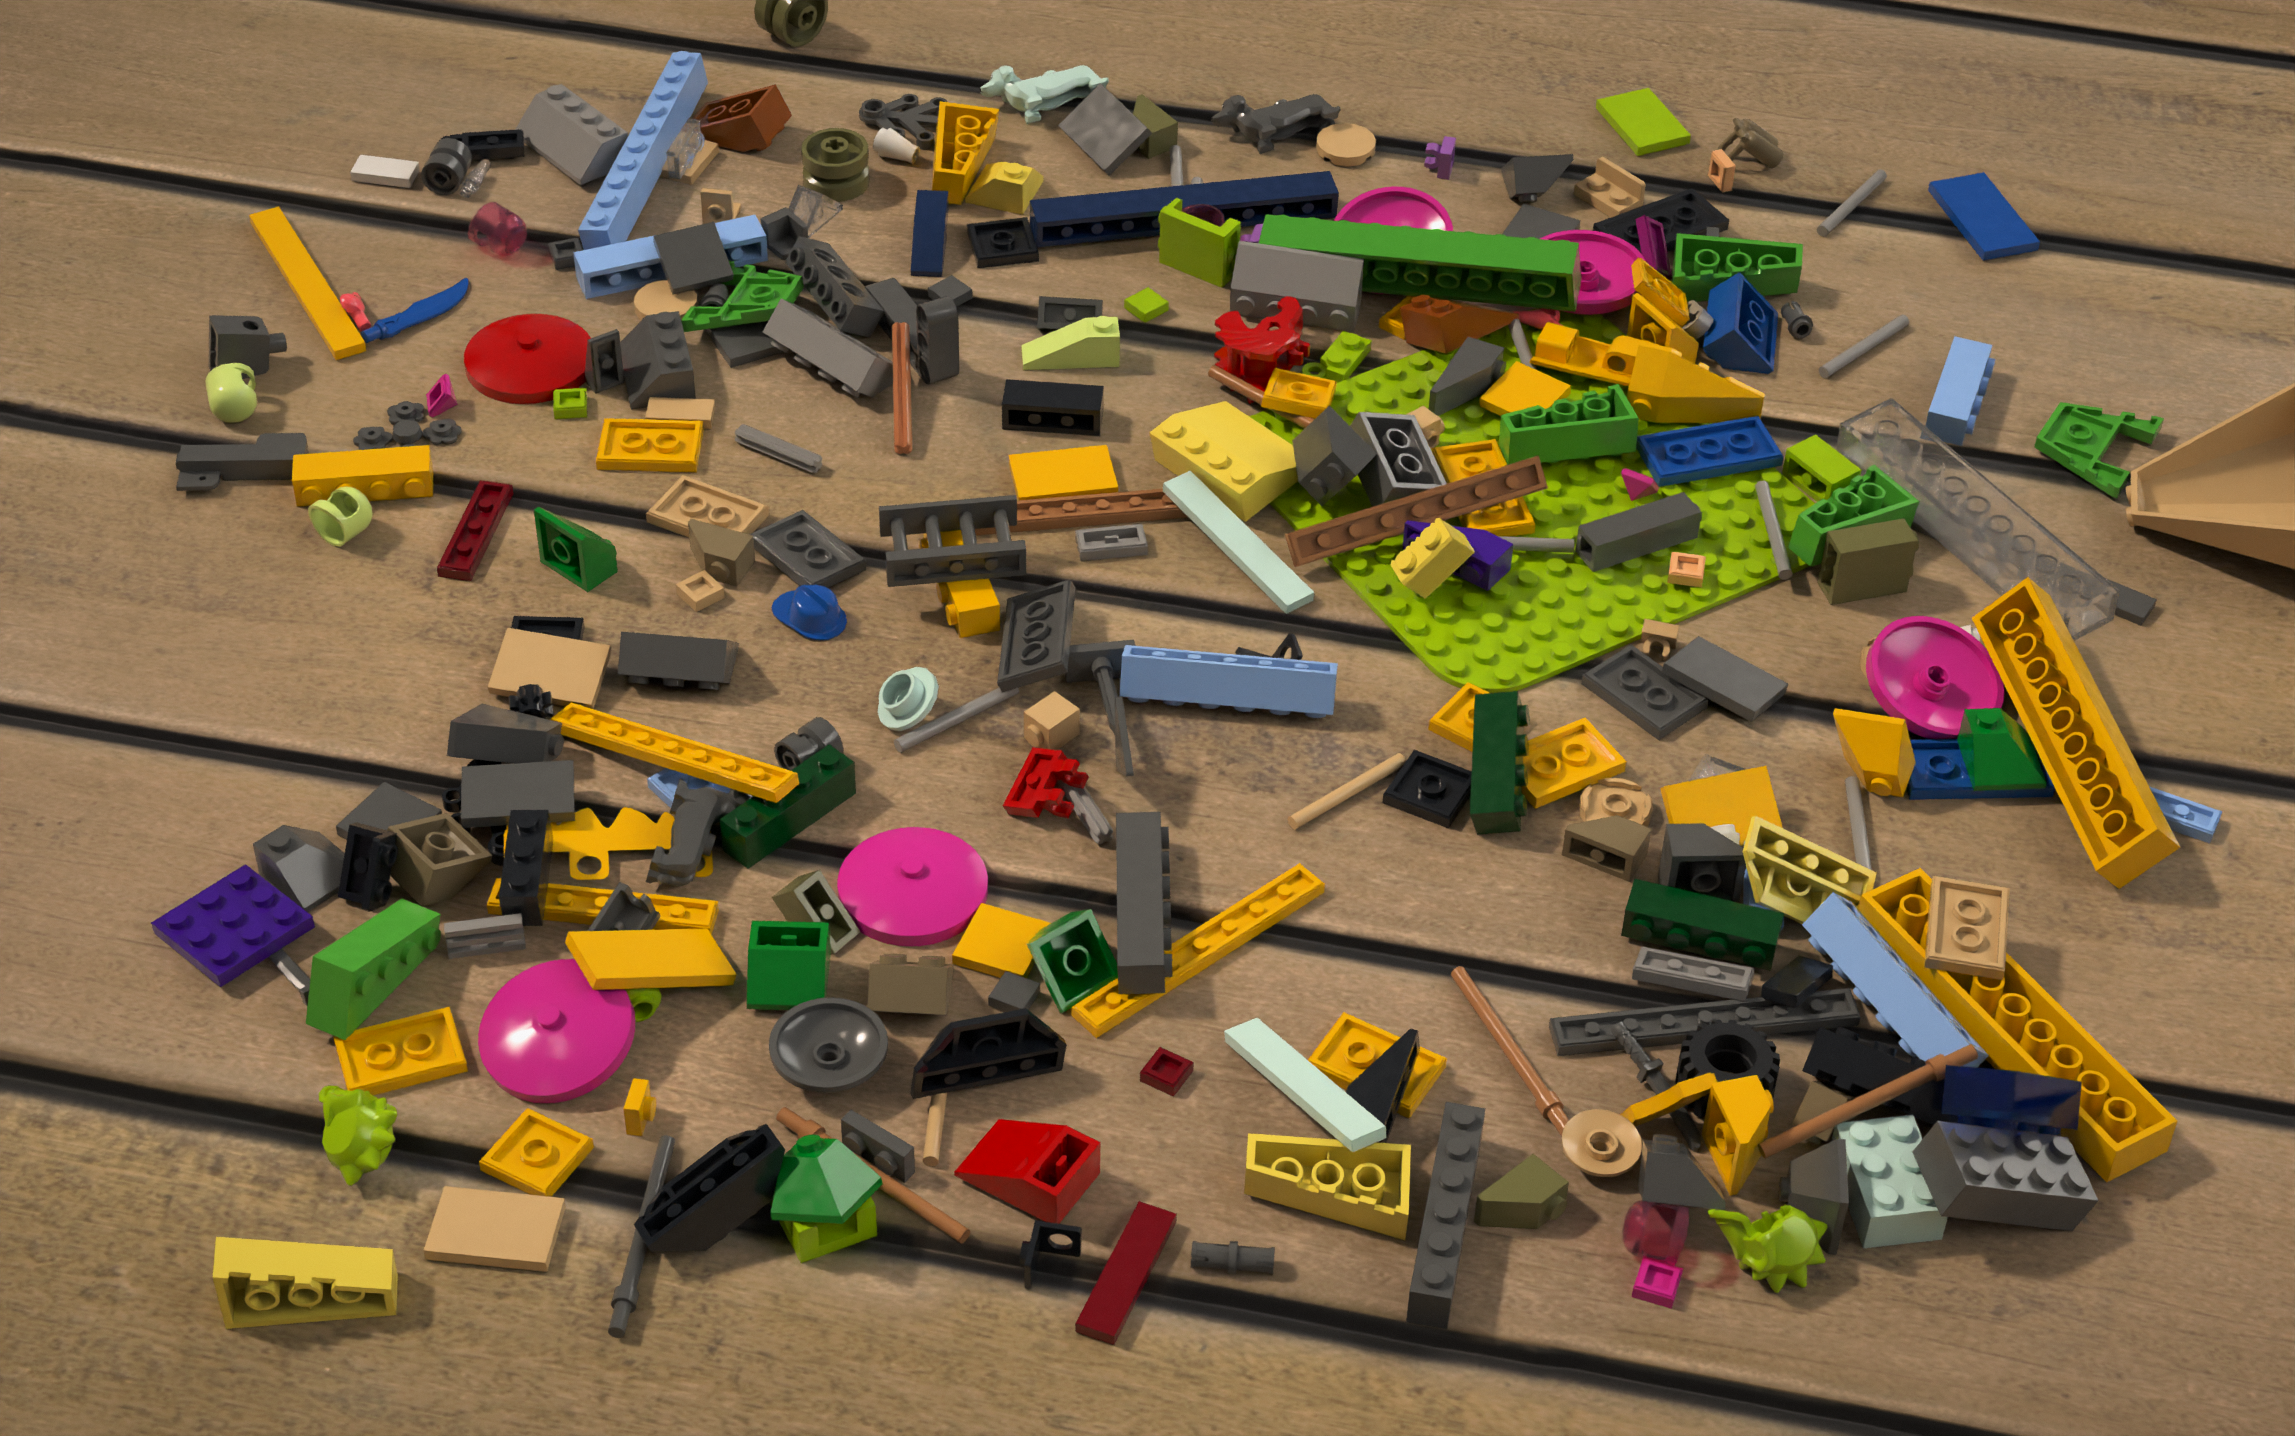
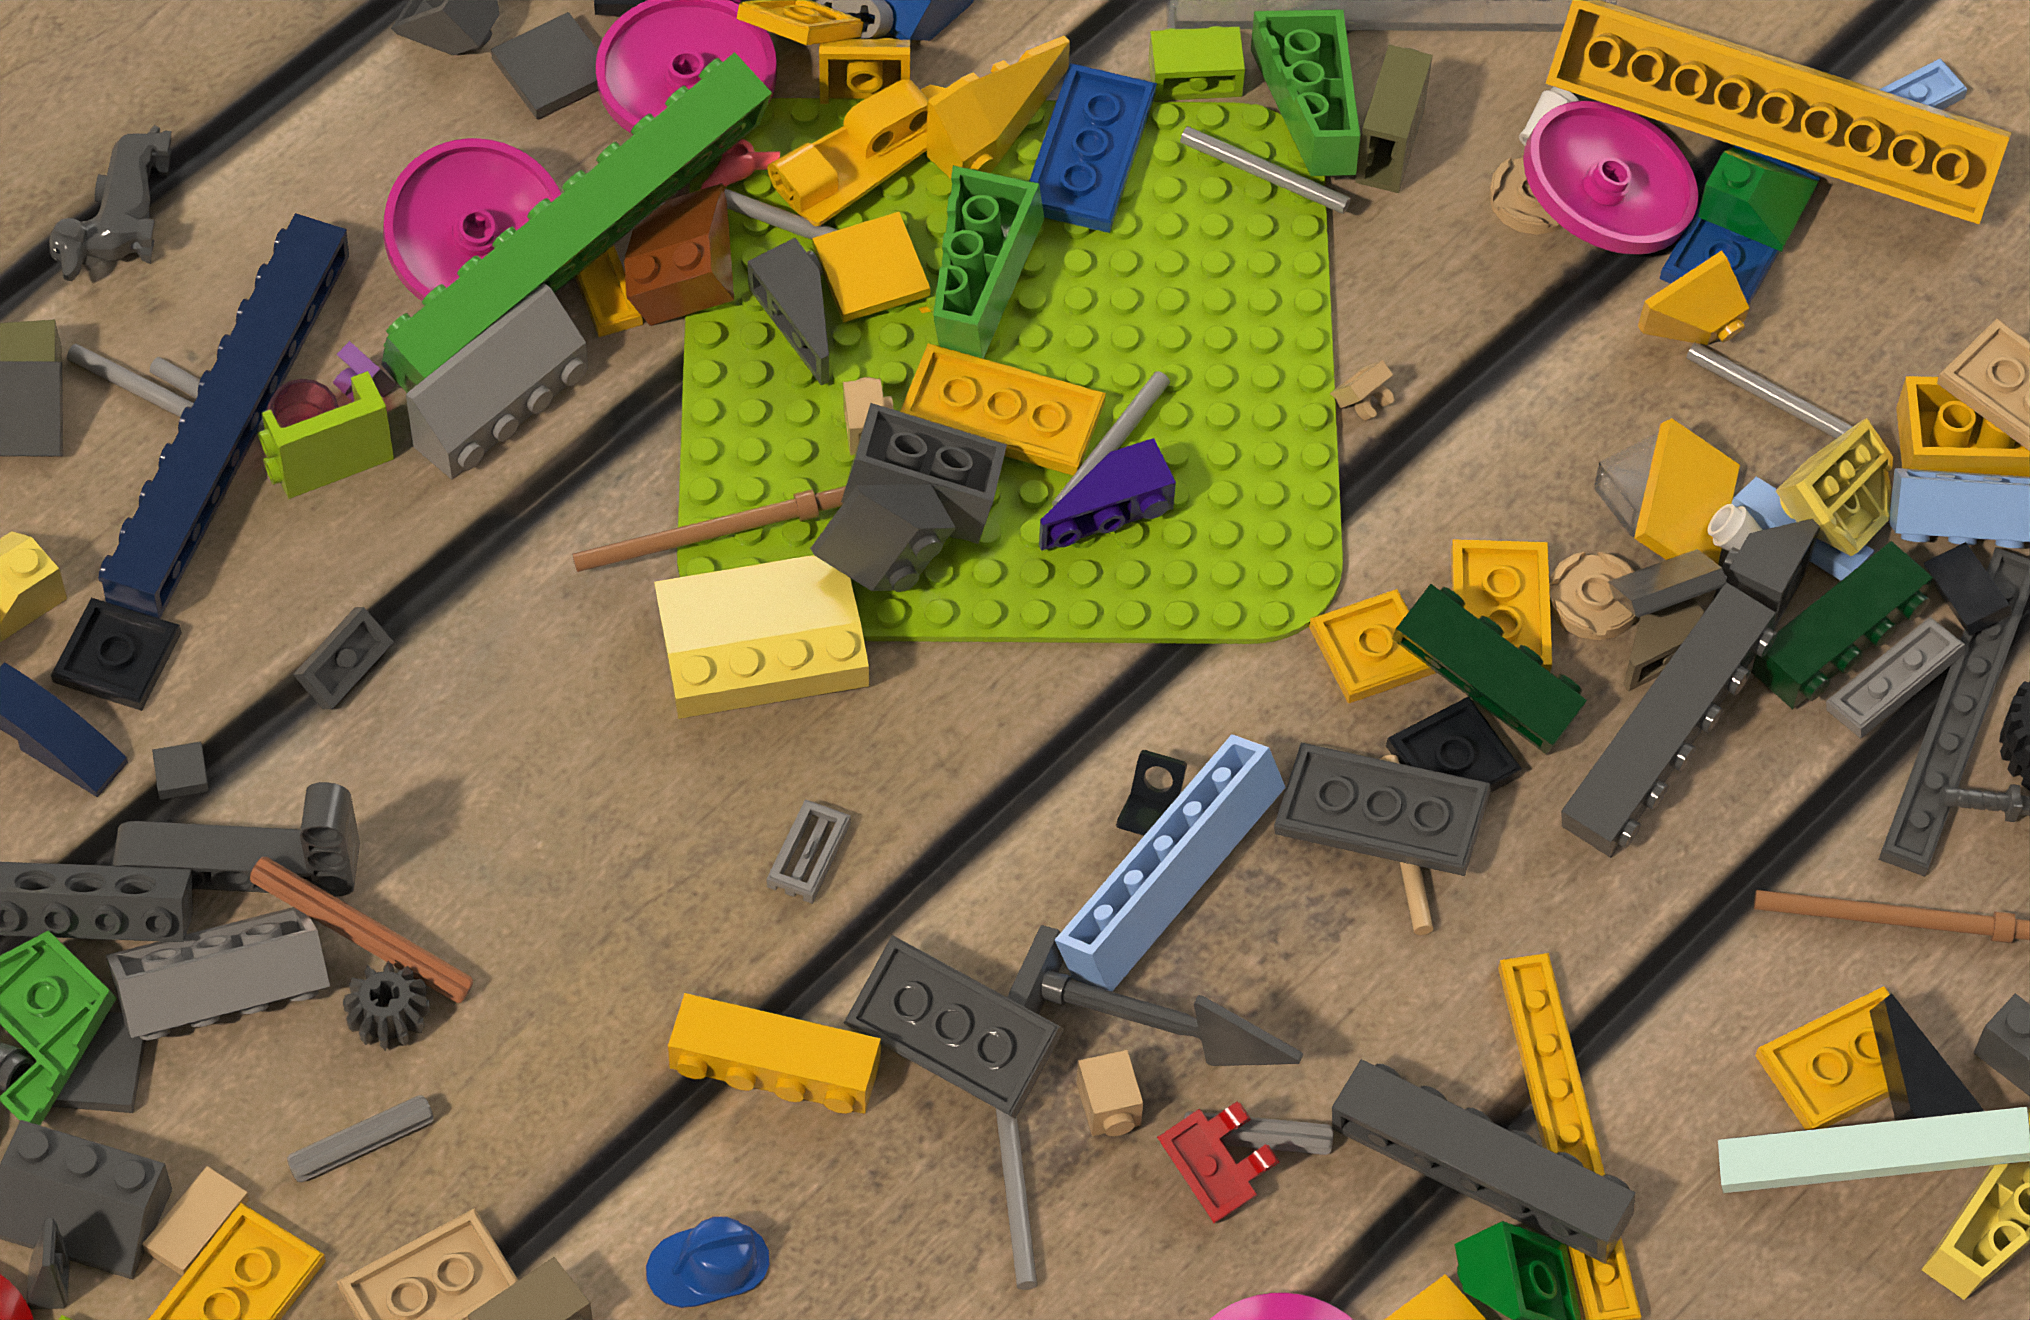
camera: 60 degrees left, 15 degrees up
(807, 551) = (594, 1207): dark grey tile -> none
(865, 419) = (368, 1000): none -> dark grey gear
(907, 698) = (954, 1250): light aqua piece -> none
(952, 563) = (777, 1066): dark grey fence -> none
(1052, 407) = (516, 777): black brick -> none
(1063, 473) = (645, 836): yellow tile -> none
(1083, 344) = (410, 688): yellowish green slope -> none
(1092, 510) = (716, 871): medium nougat tile -> none
(1146, 305) = (375, 561): lime tile -> none
(1166, 1071) = (1739, 1278): dark red tile -> none
(1238, 542) = (912, 714): light aqua tile -> none
(1257, 351) = (594, 487): red animal -> none
(1298, 393) = (704, 496): yellow tile -> none
(1340, 358) = (638, 413): lime hinge -> none
(1346, 144) = (216, 161): tan tile -> none
(1358, 764) = (1382, 809): none -> dark grey tile
(1425, 506) = (1017, 502): medium nougat tile -> none
(1432, 558) = (1130, 534): light yellow brick -> none
(1444, 157) = (337, 76): medium lavender tile -> none
(1538, 857) = (1669, 720): none -> dark grey brick
(1630, 809) = (1667, 583): none -> dark grey tile
(1638, 484) = (1107, 251): dark pink slope -> none
(1638, 531) = (1194, 301): dark grey brick -> none
(1642, 693) = (1429, 455): dark grey tile -> none
(1686, 569) = (1274, 293): light nougat tile -> none
(1724, 678) = (1469, 367): dark grey tile -> none

